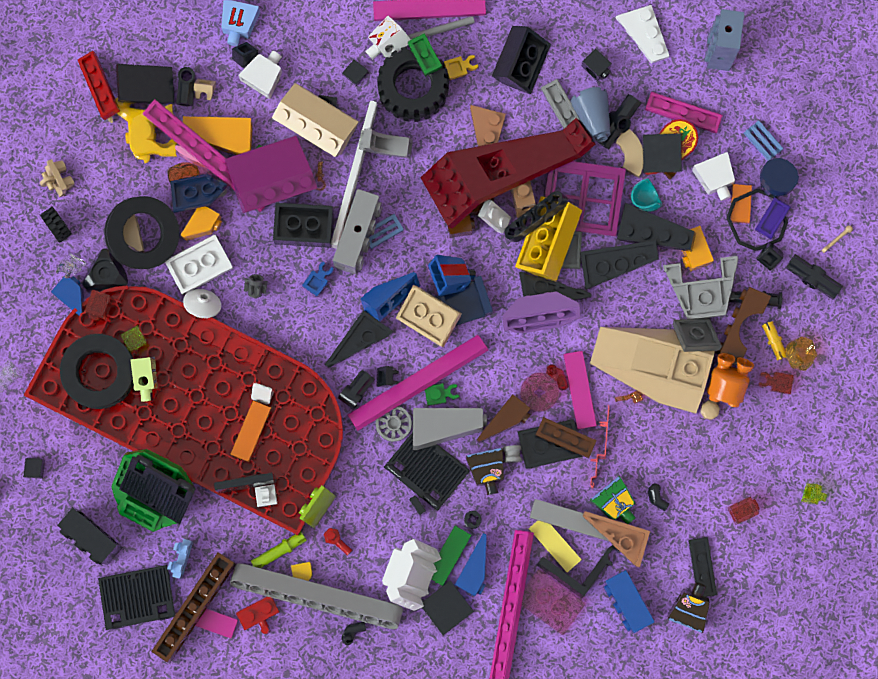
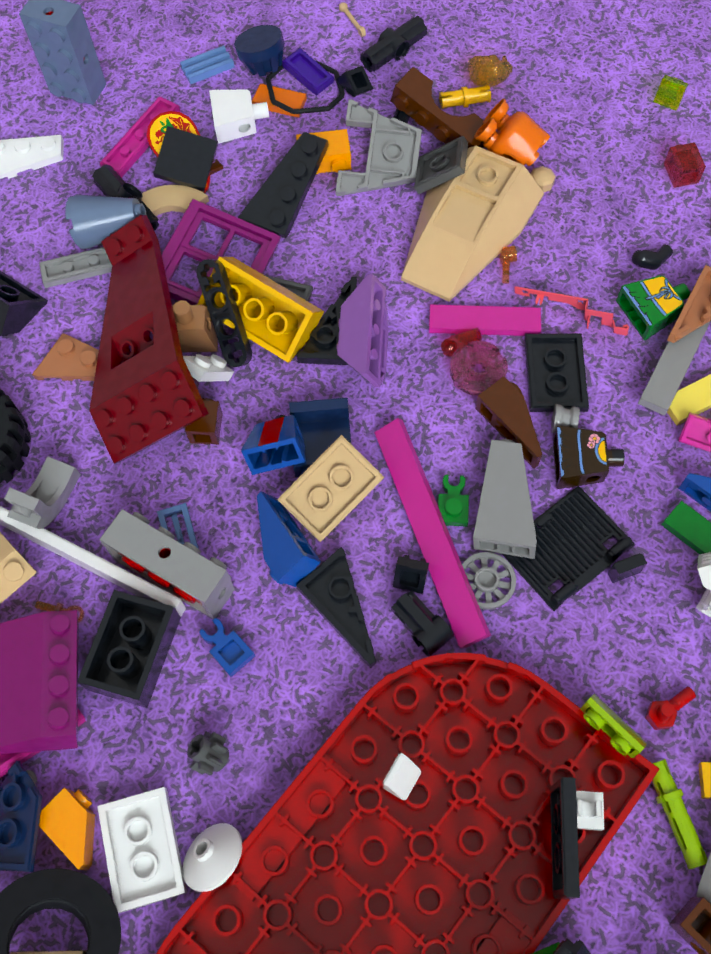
camera: 75 degrees left, 15 degrees down
(251, 431) = (465, 813): orange tile -> none
(467, 517) = (663, 485): black bush -> none
(566, 437) = (554, 343): reddish brown plate -> none
(597, 65) = (39, 211): black brick -> none
(612, 262) = (315, 243): black wing -> none
(646, 196) = (238, 192): teal helmet -> none
(779, 382) = (521, 99): clear red plate -> none

